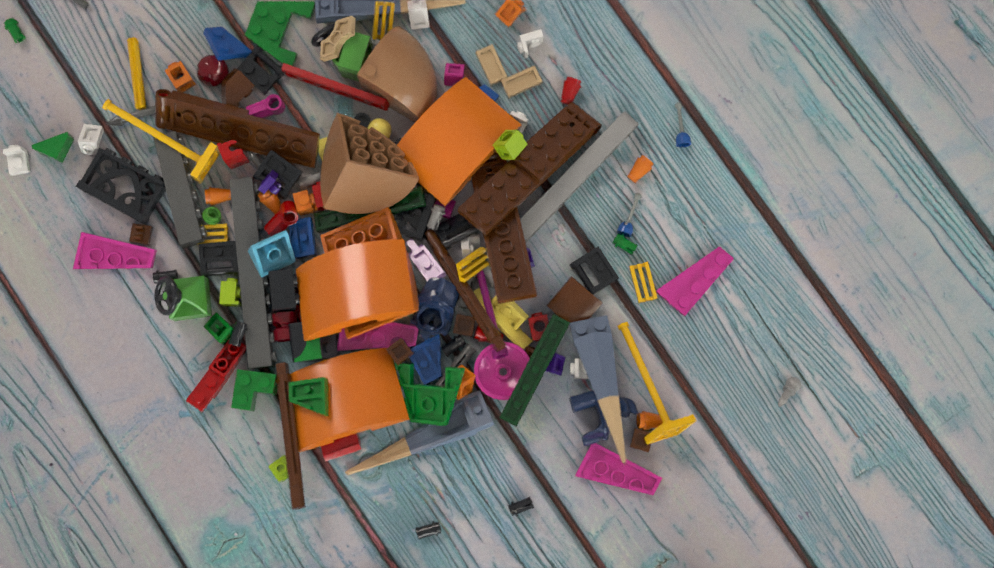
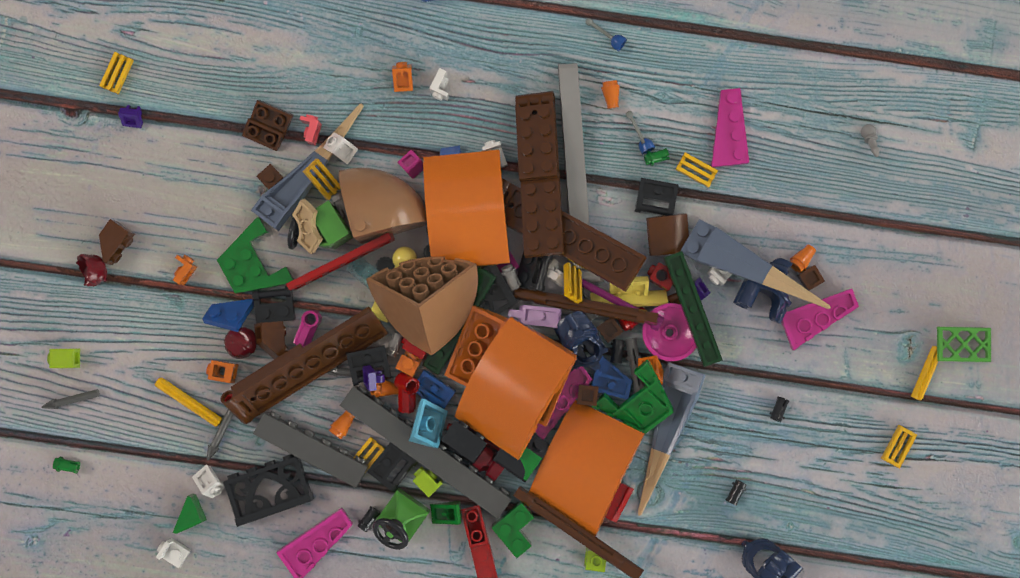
camera: 50 degrees left, 5 degrees up
(141, 234) = (318, 508): reddish brown tile -> none
(203, 162) = (307, 413): yellow tile -> none
(214, 212) = (353, 438): bright green plate -> none
(232, 158) = (323, 387): red hinge -> none
(237, 333) = (467, 507): black pin -> none
(310, 394) = (563, 491): green wing -> none
(491, 65) = (430, 130): tan tile -> none
(510, 144) = (510, 172): lime brick -> none
(521, 81) = (463, 119): tan tile -> none
(570, 89) = (504, 89): red cone -> none
(669, 427) = (823, 249): yellow tile -> none

